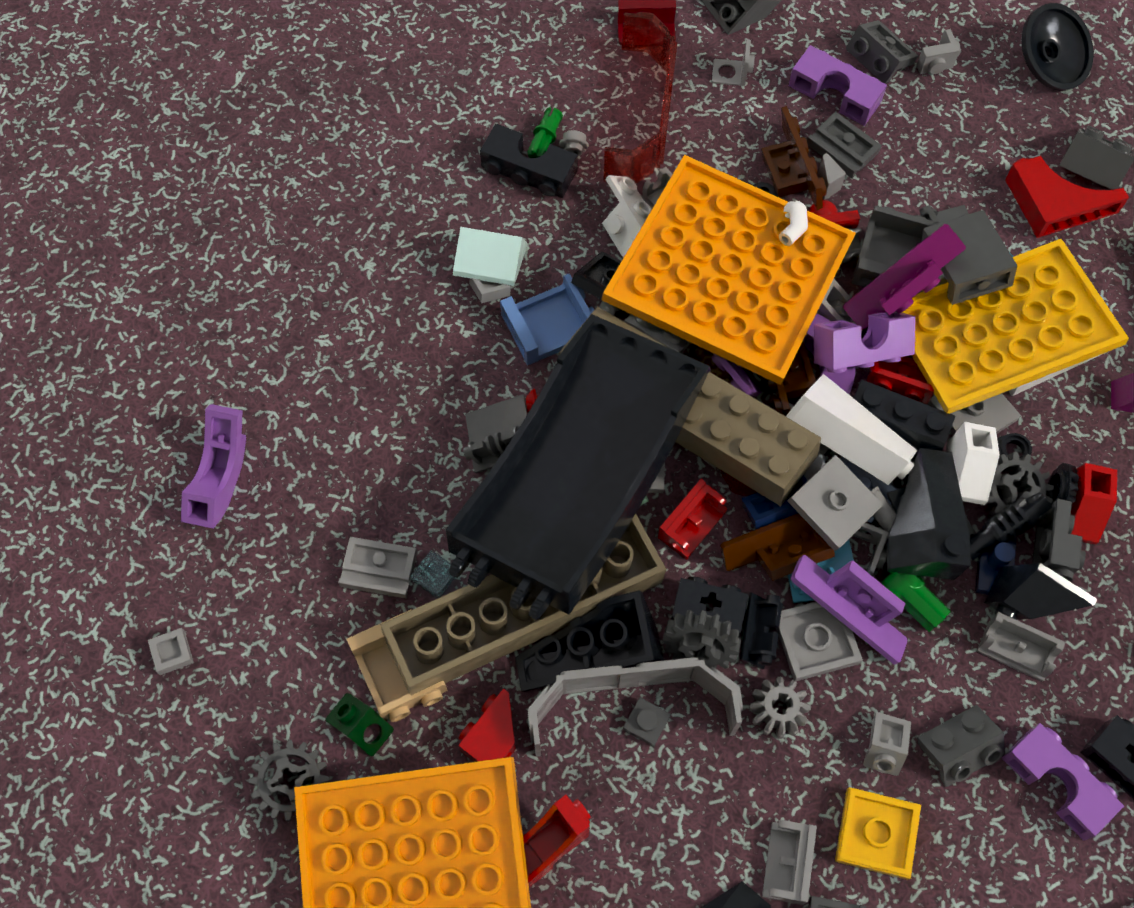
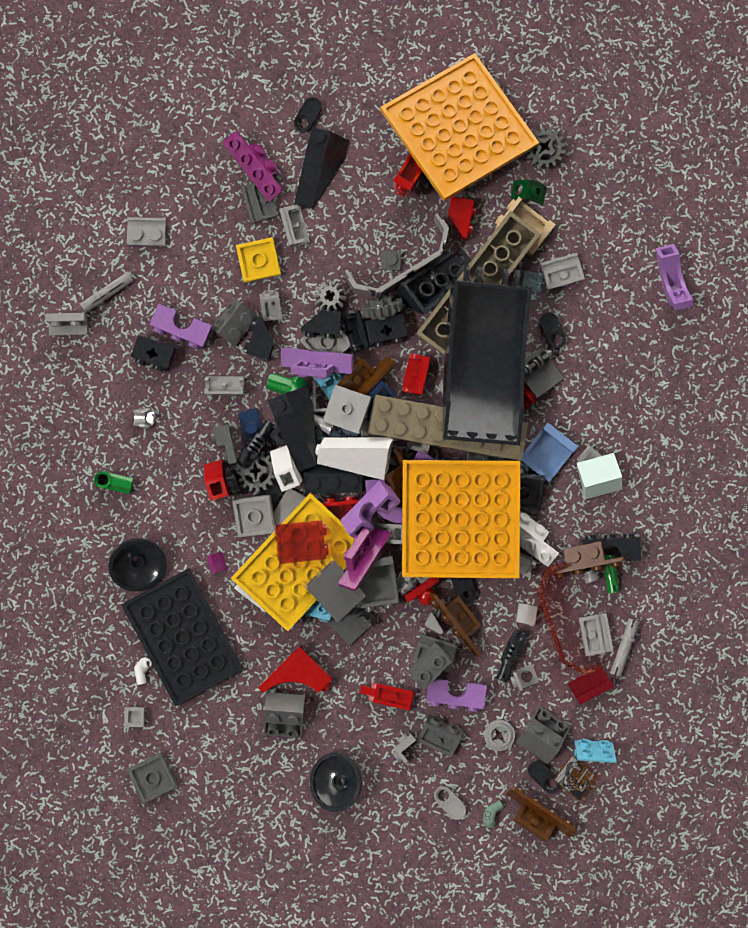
camera: 150 degrees right, 20 degrees up
(170, 651) = (639, 180): light grey plate -> none
(443, 495) = (550, 326): none -> black piece
(562, 150) = (586, 557): none -> reddish brown bracket
(567, 52) = (624, 647): none -> light grey pin
(607, 75) = (595, 634): none -> light grey plate
(690, 136) = (526, 614): none -> light grey slope
(736, 99) = (511, 654): none -> black hinge
(798, 222) = (436, 562): white arm -> none
(806, 12) = (498, 744): none -> light grey gear
(814, 660) = (324, 323): none -> black slope
(863, 108) = (429, 665): none -> dark grey panel
(928, 689) = (261, 343): none -> black slope
(935, 122) = (388, 695): none -> red hinge
(996, 342) = (301, 542): none -> clear red panel
(1034, 592) = (228, 410): black slope -> none
(1044, 429) = (254, 515): none -> light grey plate

